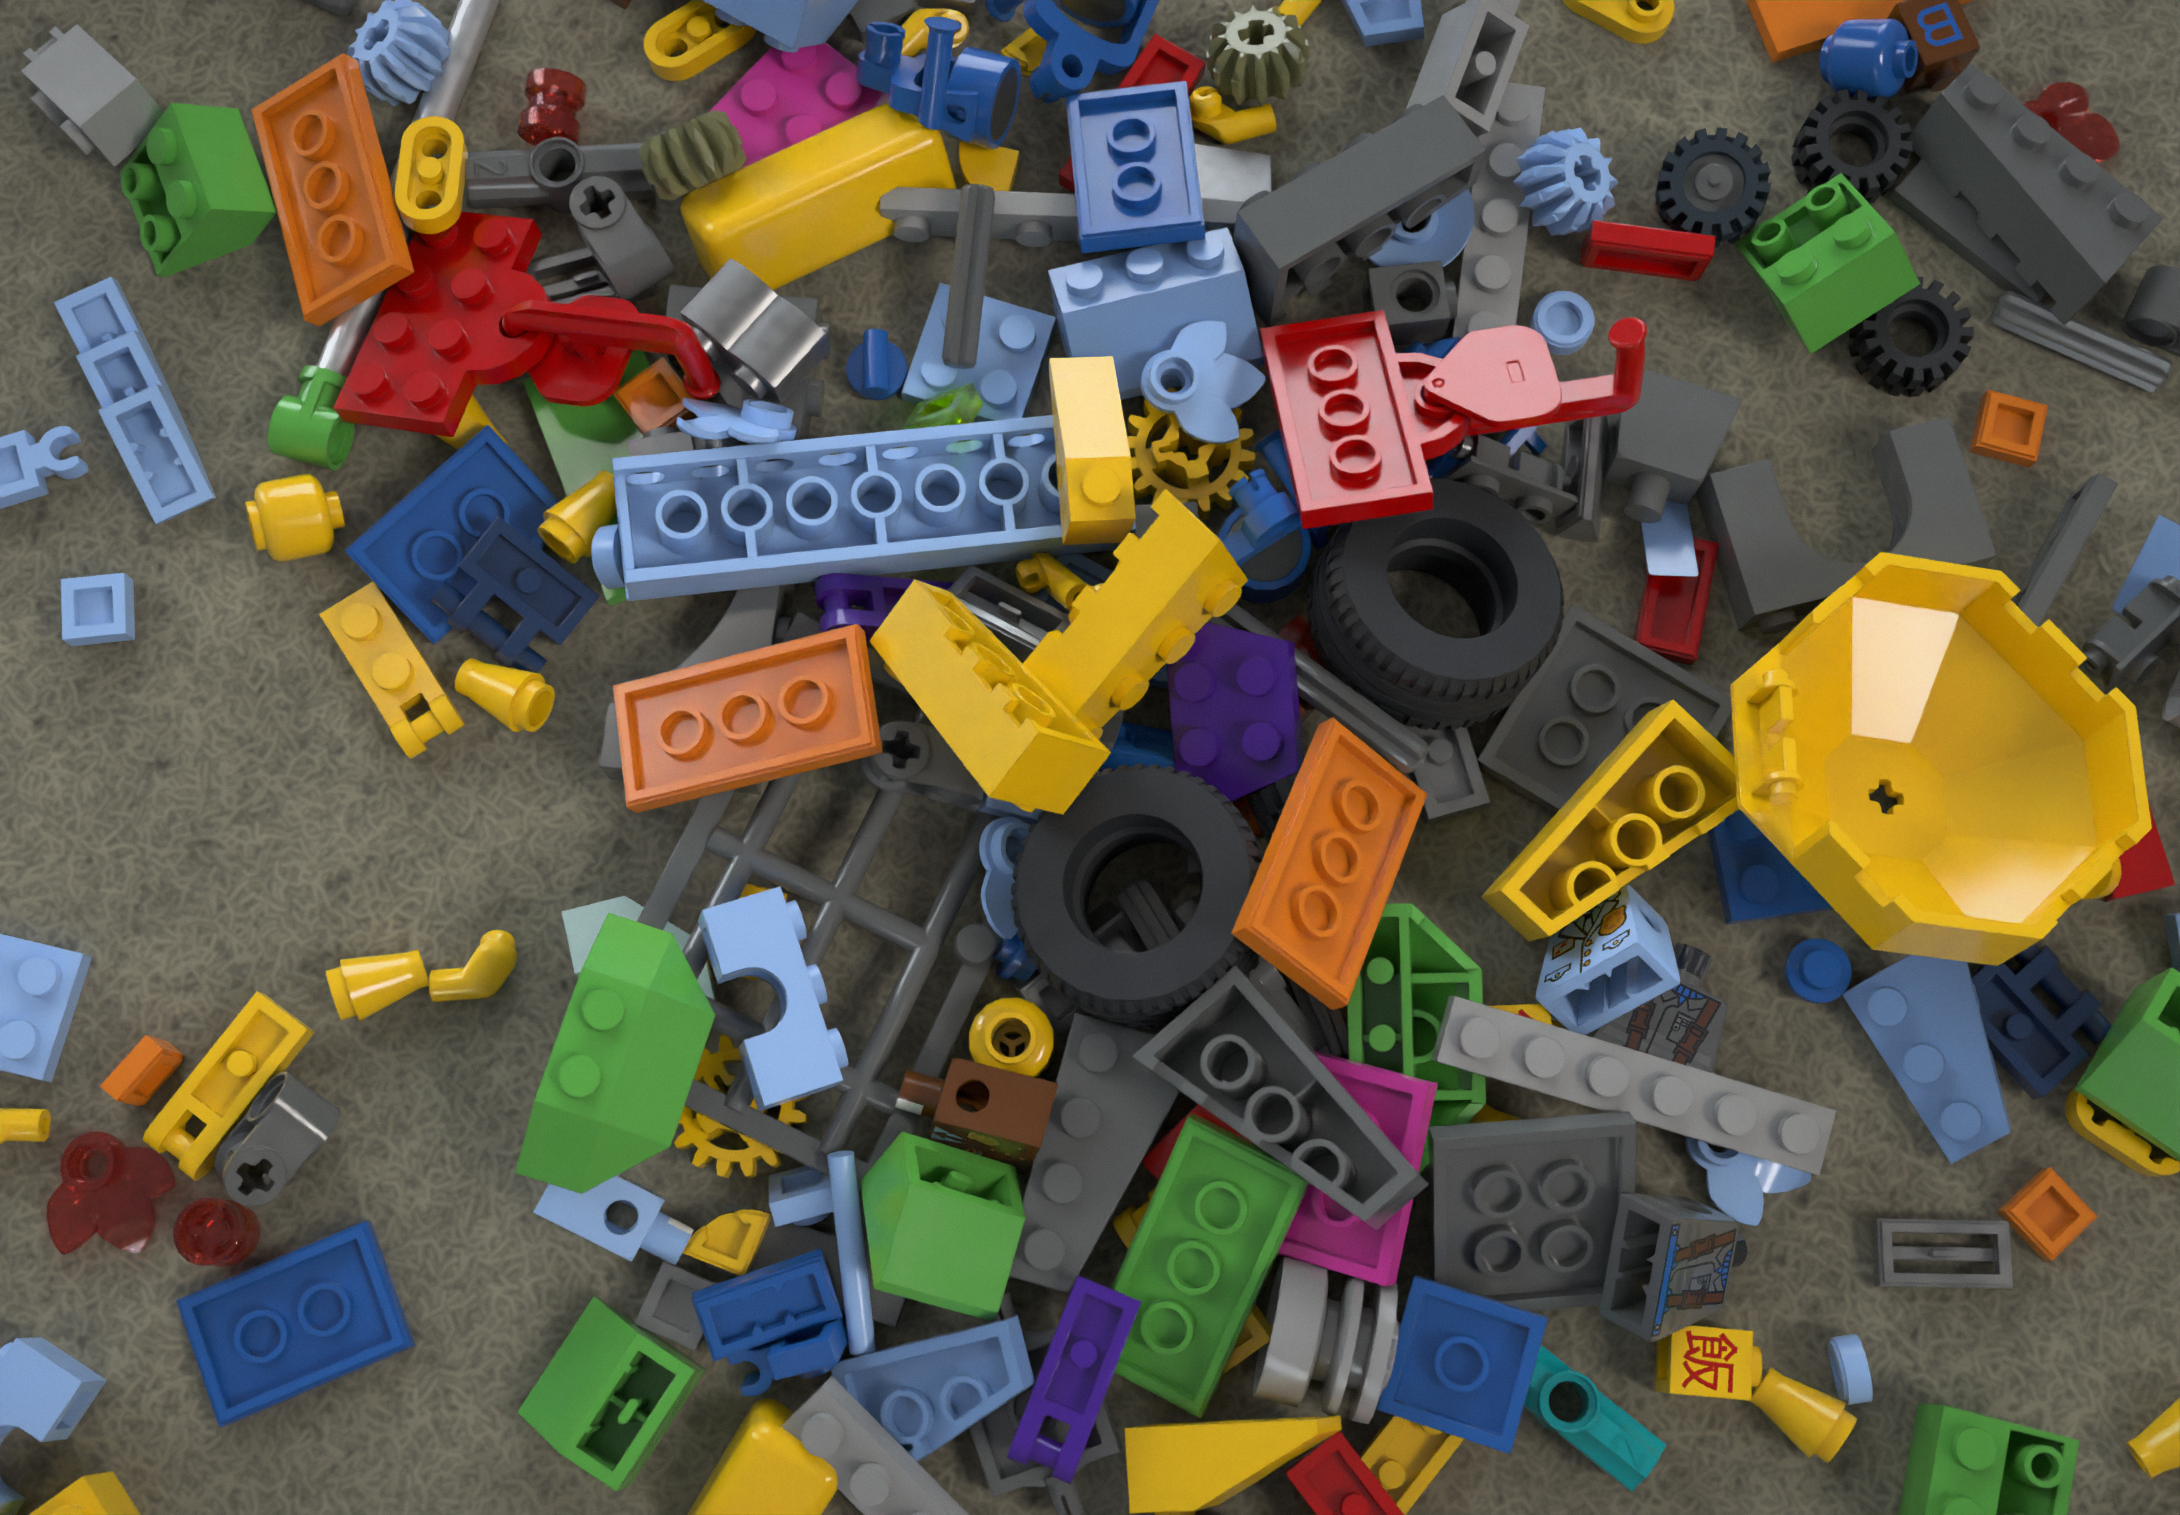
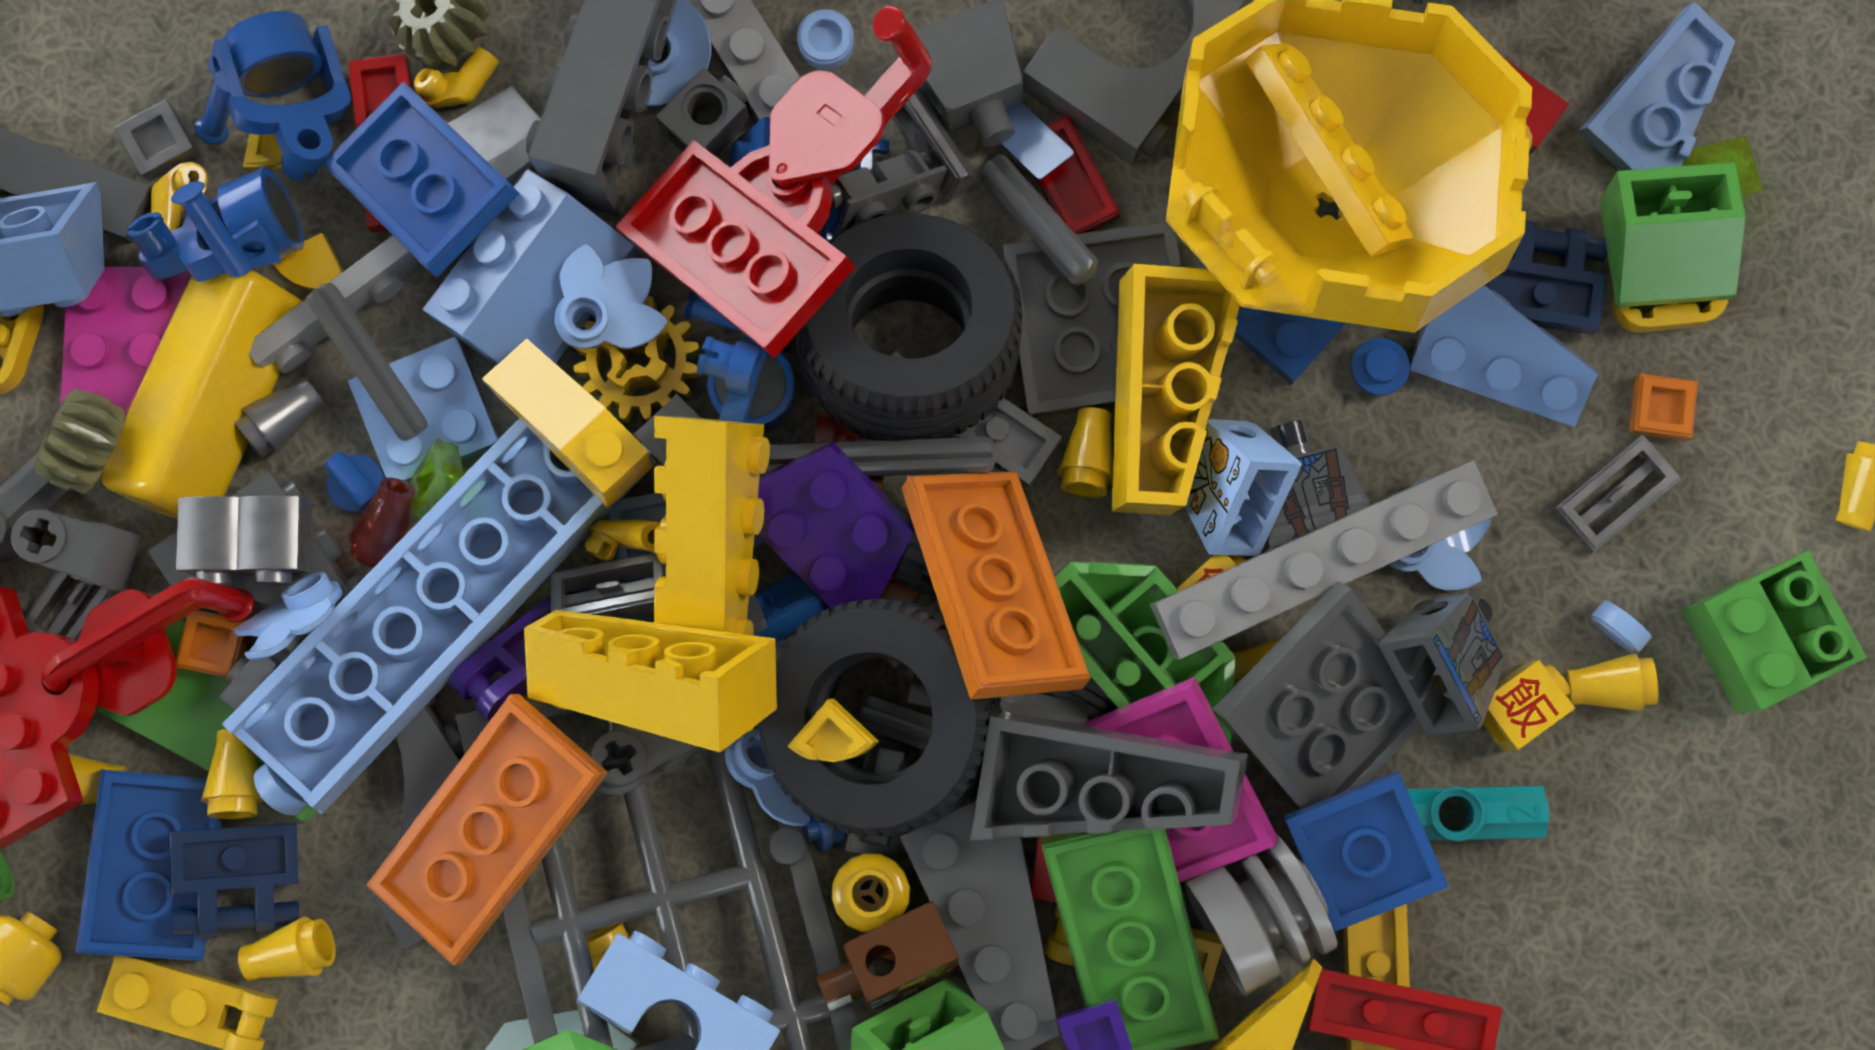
camera: 40 degrees left, 5 degrees up
(861, 266) = (278, 416): none -> flat silver cone
(874, 410) = (382, 522): none -> clear red cone
(1090, 872) = (832, 736): none -> yellow tile
(1499, 837) = (1089, 455): none -> yellow cone
(1621, 608) = (1039, 220): none -> dark grey axle
(1924, 749) = (1339, 162): none -> yellow plate

